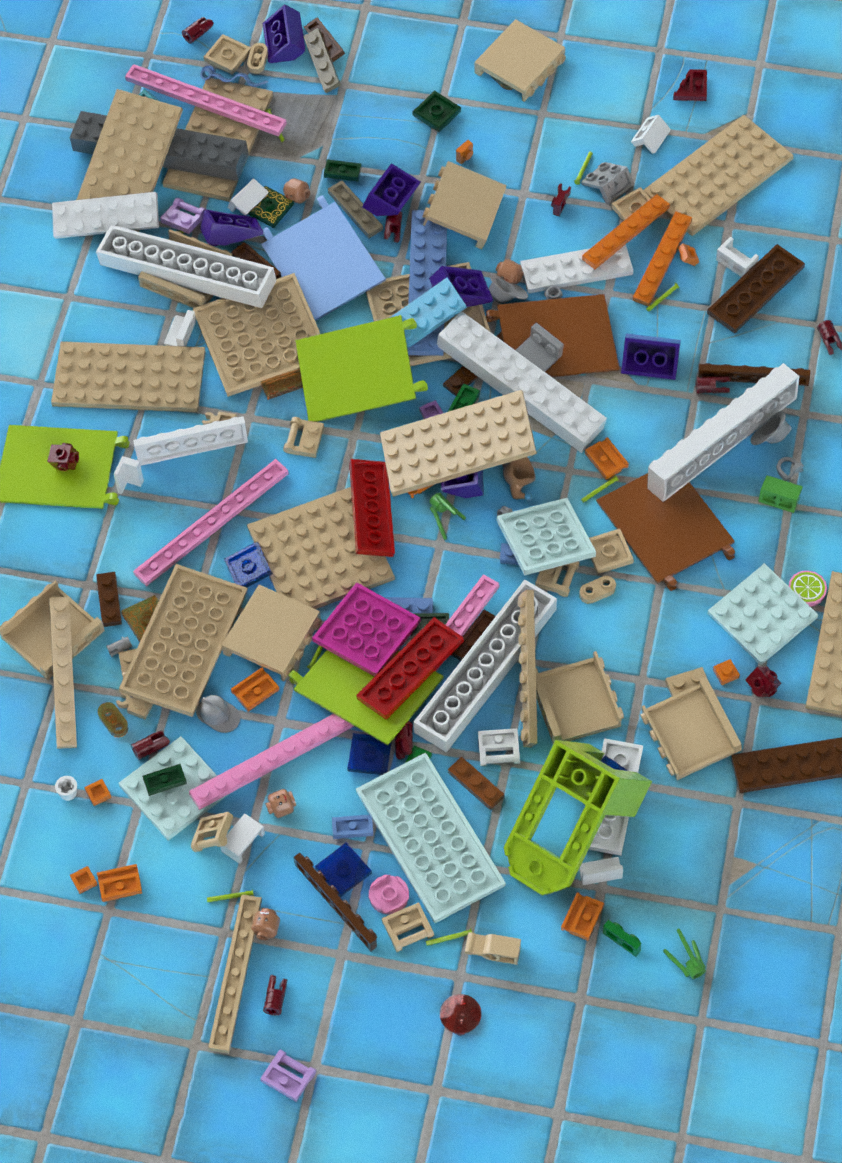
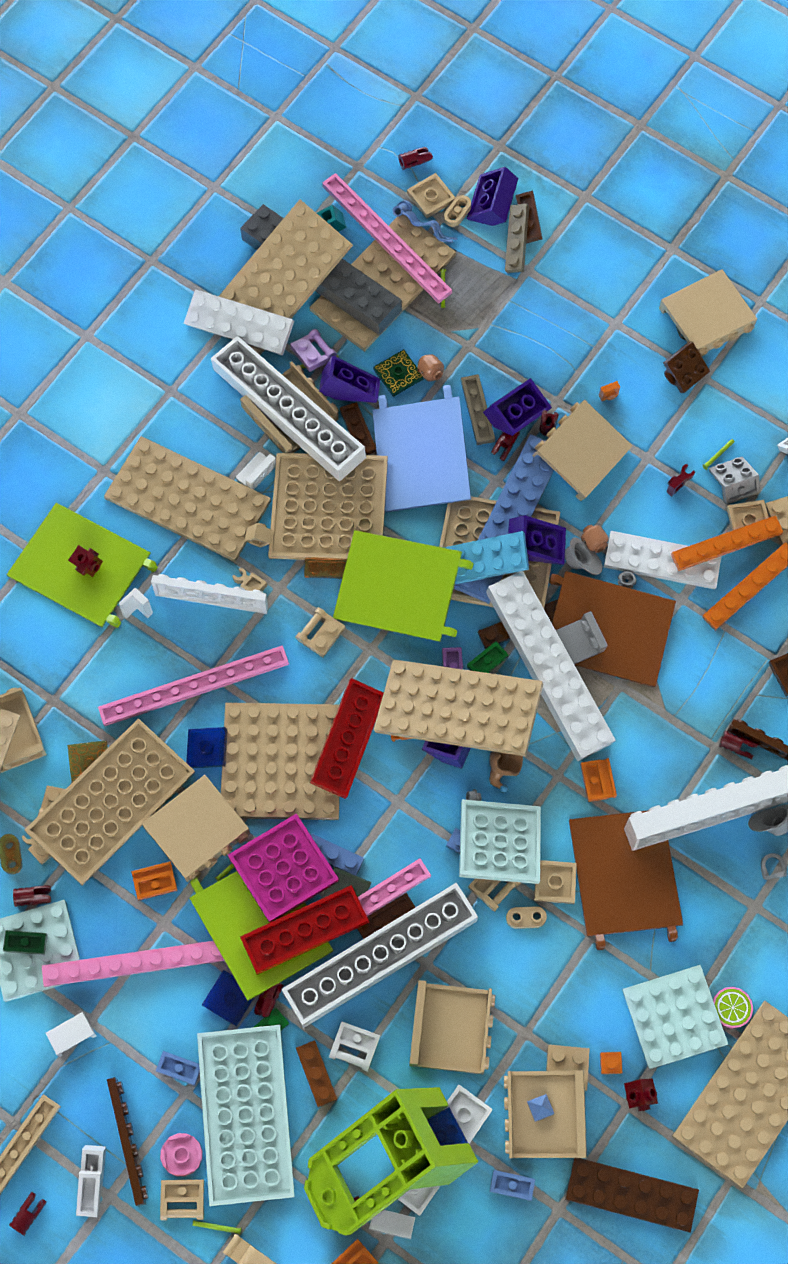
camera: 20 degrees right, 10 degrees up
(109, 599) = (64, 724): reddish brown plate -> none
(119, 646) = (51, 779): light grey pin -> none
(209, 826) = (49, 1011): tan plate -> none
(210, 379) = (258, 535): none -> tan plate
(218, 714) = (110, 890): light grey piece -> none
(229, 896) = (35, 1088): lime piece -> none
(248, 197) = (381, 356): white panel -> none
(265, 924) = (51, 1135): nougat head -> none
(281, 803) = (122, 1014): nougat head -> none
(319, 946) = (90, 1180): none -> white slope
(342, 170) = (484, 363): dark green plate -> none
(343, 869) = (150, 1110): clear blue plate -> none
(422, 195) = (550, 419): none -> dark red hinge
(436, 111) = (602, 336): dark green plate -> none
(441, 504) = (416, 761): bright green plant -> none
(521, 109) = (685, 367): none -> reddish brown plate
(528, 673) = (418, 973): tan plate -> none
(615, 478) = (577, 809): lime piece -> none
(650, 356) = (691, 688): dark purple slope -> none
(661, 298) = (731, 627): lime piece -> none
(683, 726) = (540, 1107): none -> medium blue slope
(688, 254) = (778, 592): orange plate -> none
(689, 798) = (512, 1185): none -> medium blue plate
(780, 494) = (751, 893): bright green hinge -> none

